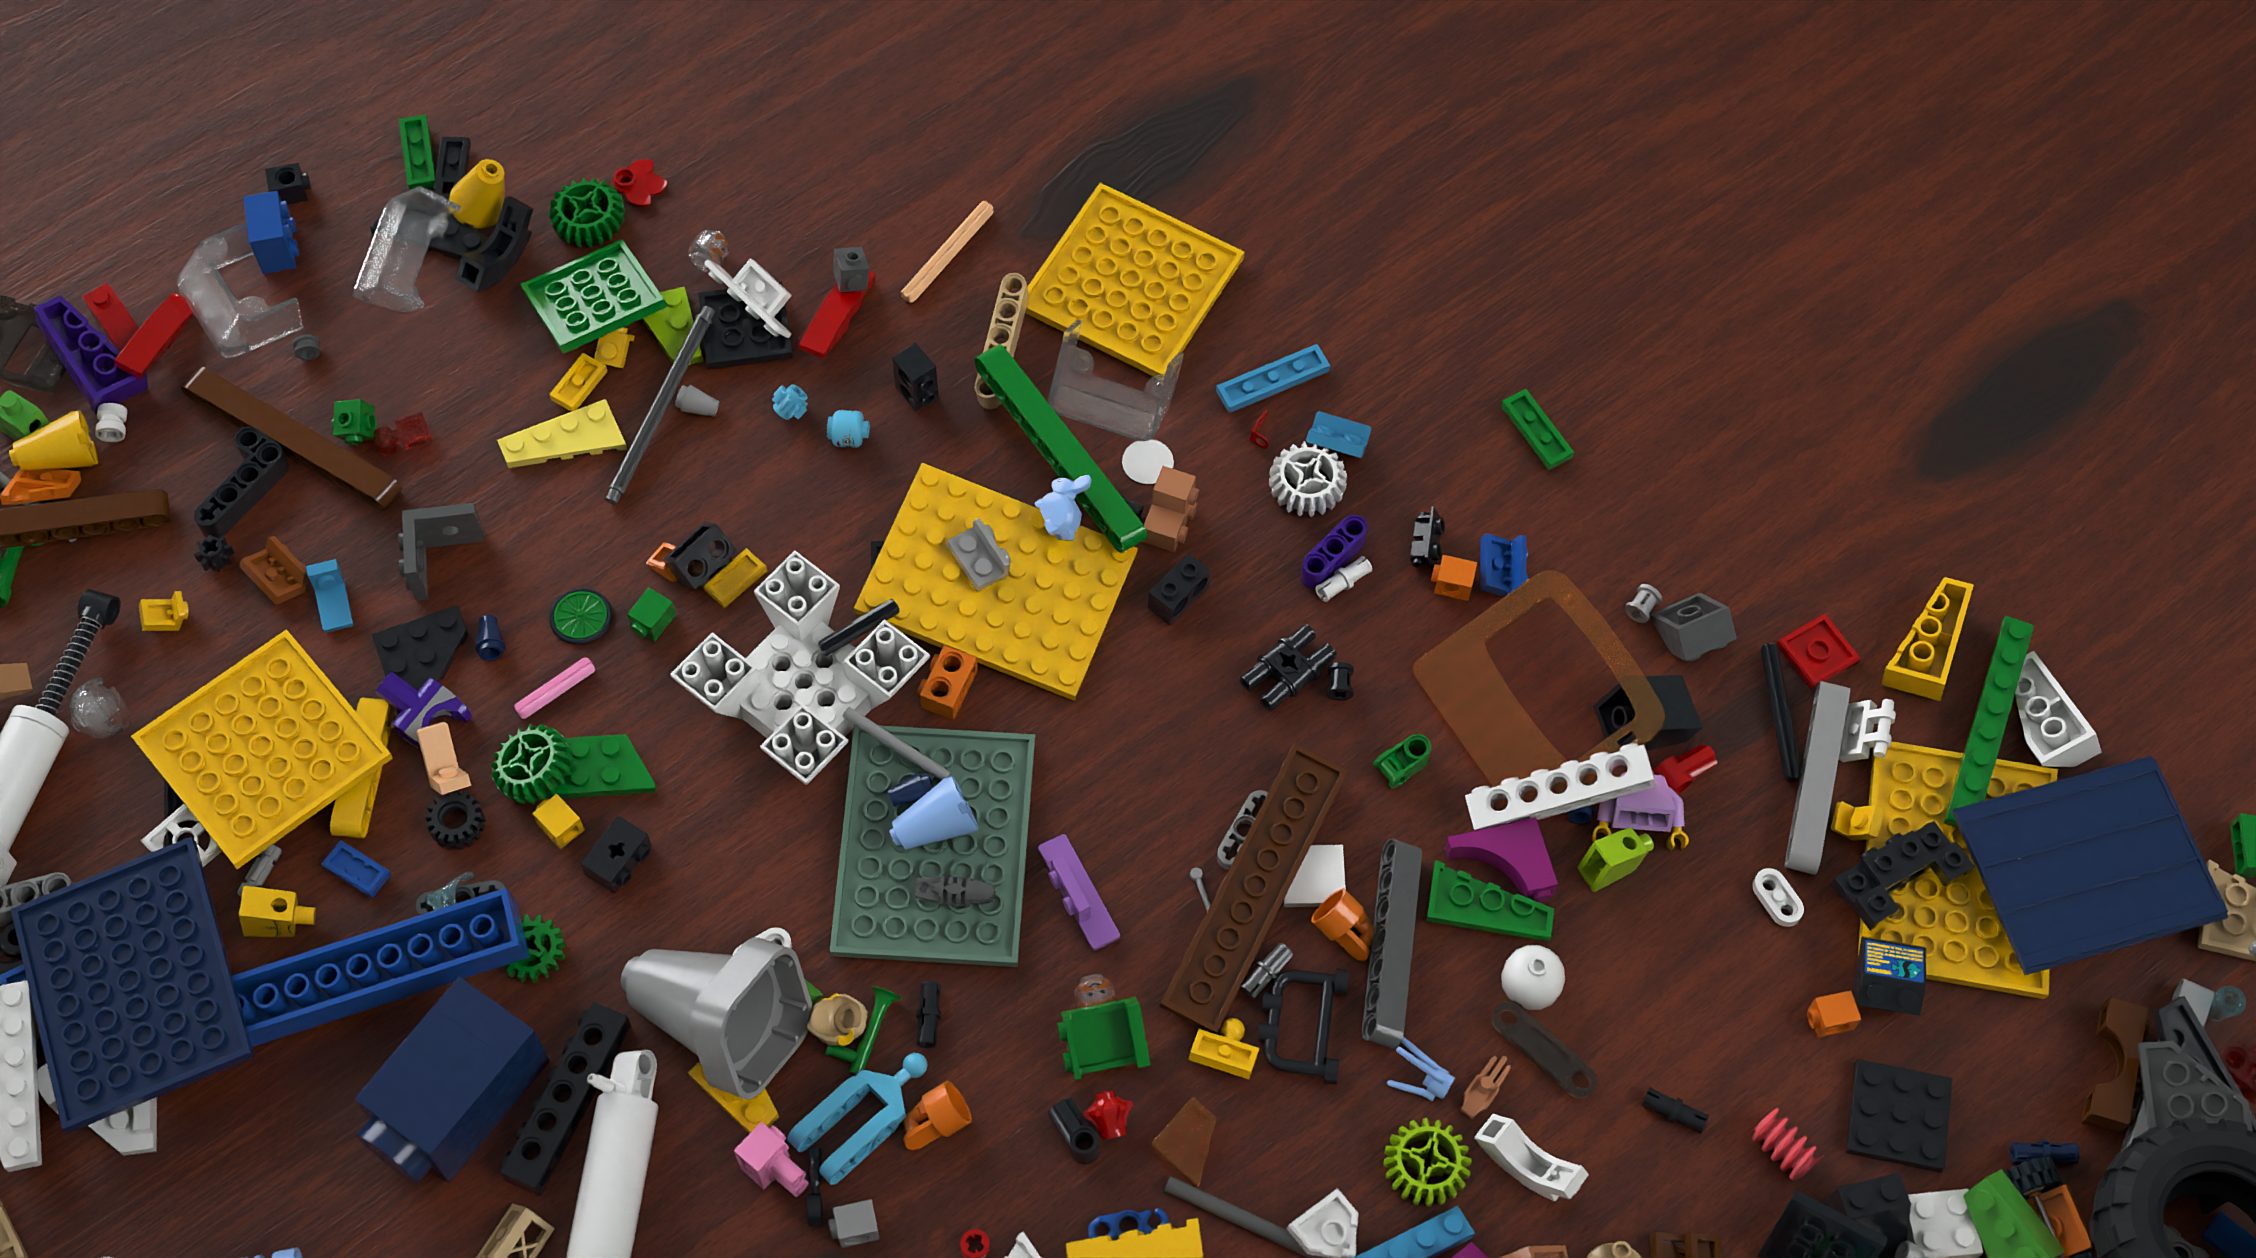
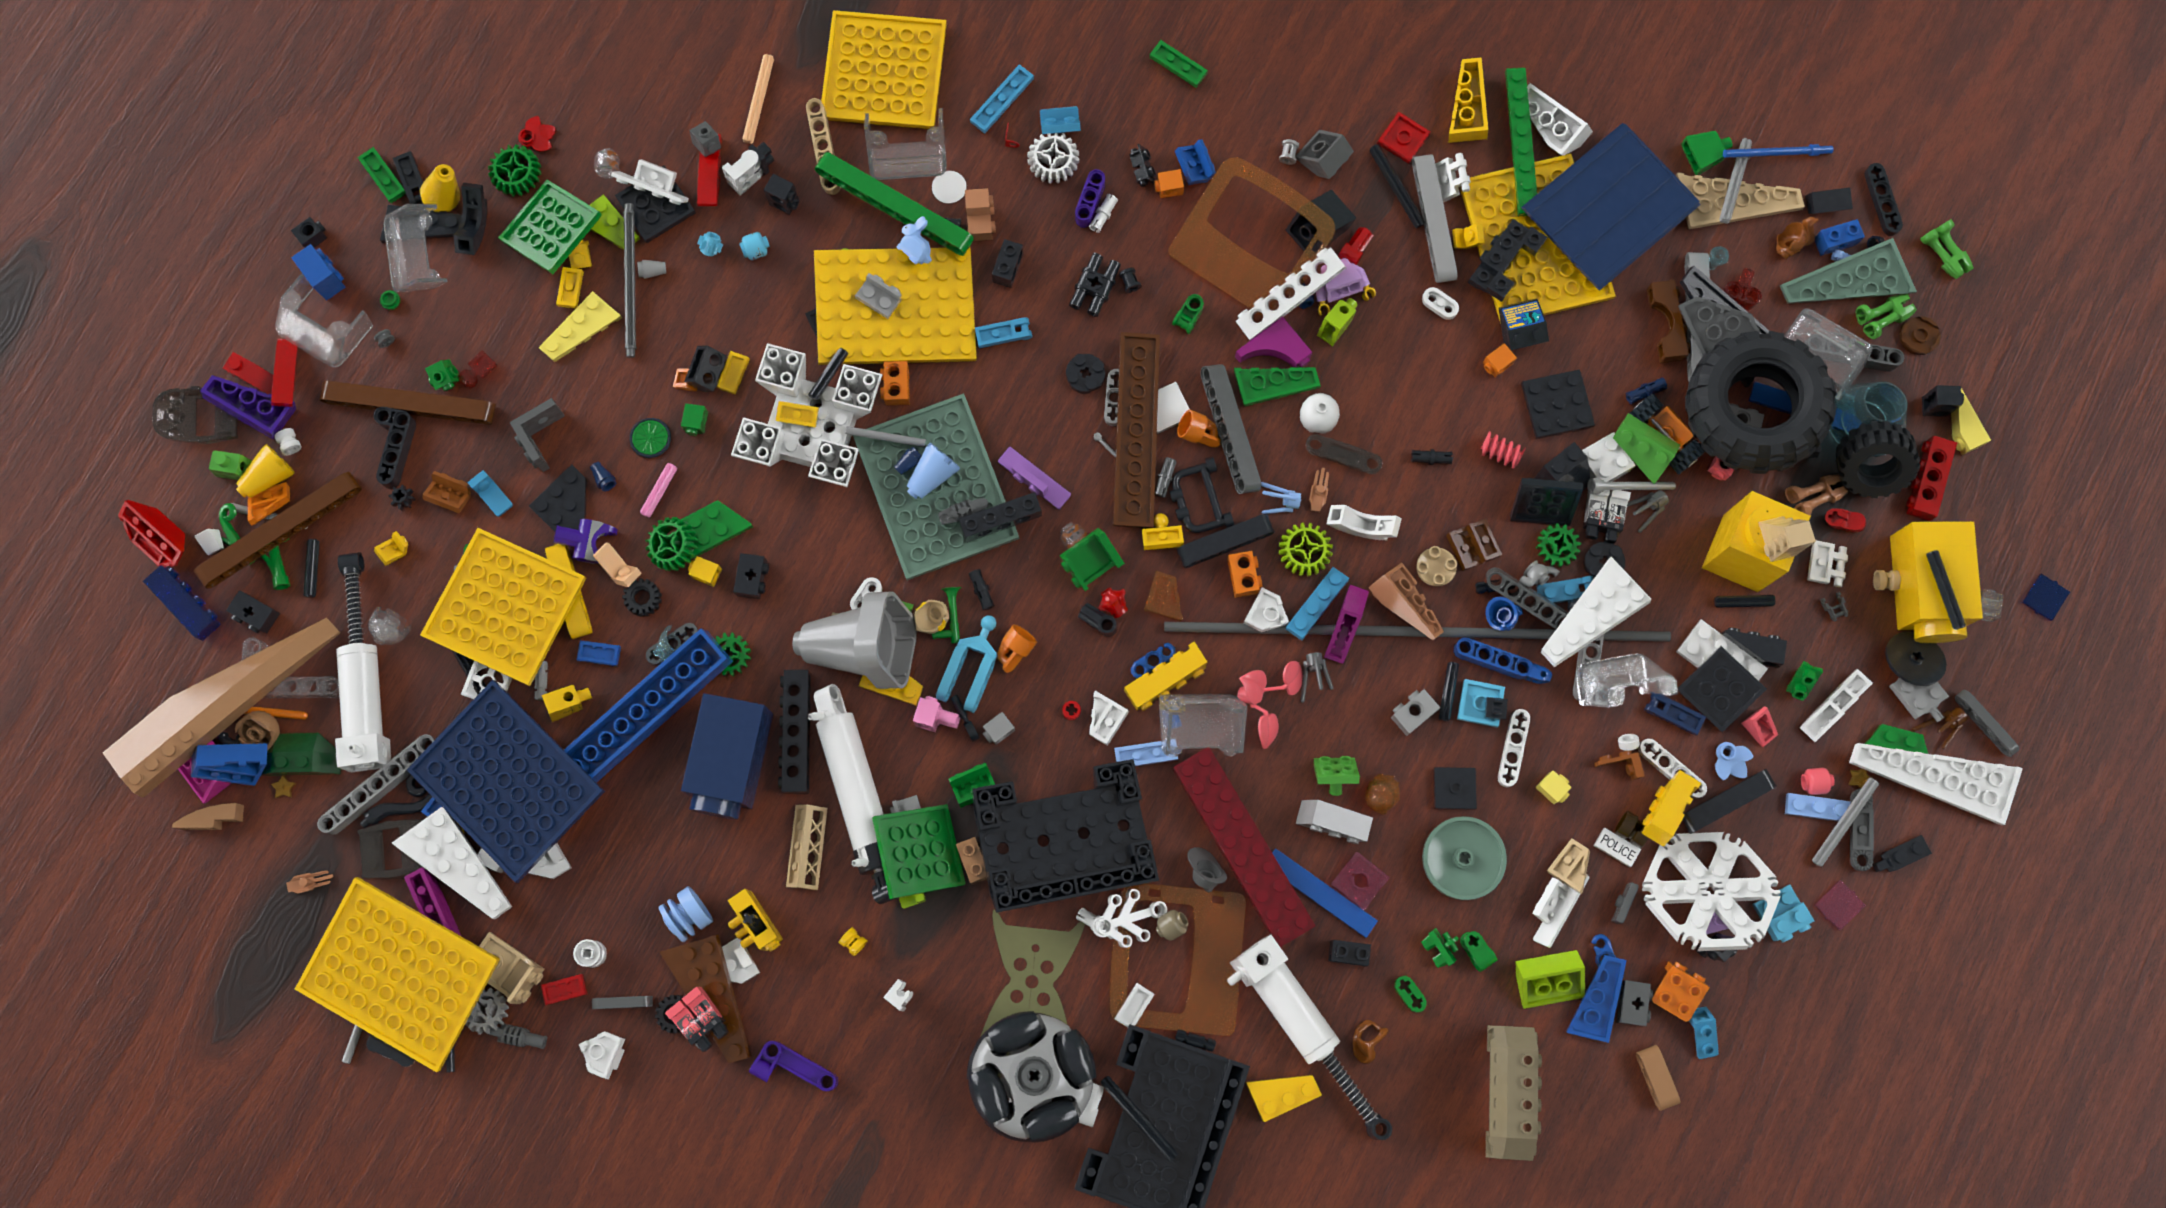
camera: 20 degrees left, 15 degrees up
(47, 594) = (311, 568): none -> black axle
(341, 304) = (390, 300): none -> green plate
(789, 661) = (797, 414): none -> yellow plate
(889, 327) = (748, 168): none -> white hips
(1002, 922) = (1000, 517): none -> black brick
(1129, 677) = (1003, 332): none -> dark azure plate
(1224, 764) = (1080, 363): none -> black plate
(1314, 1098) = (1225, 540): none -> black beam
(1314, 1156) = (1239, 574): none -> orange brick

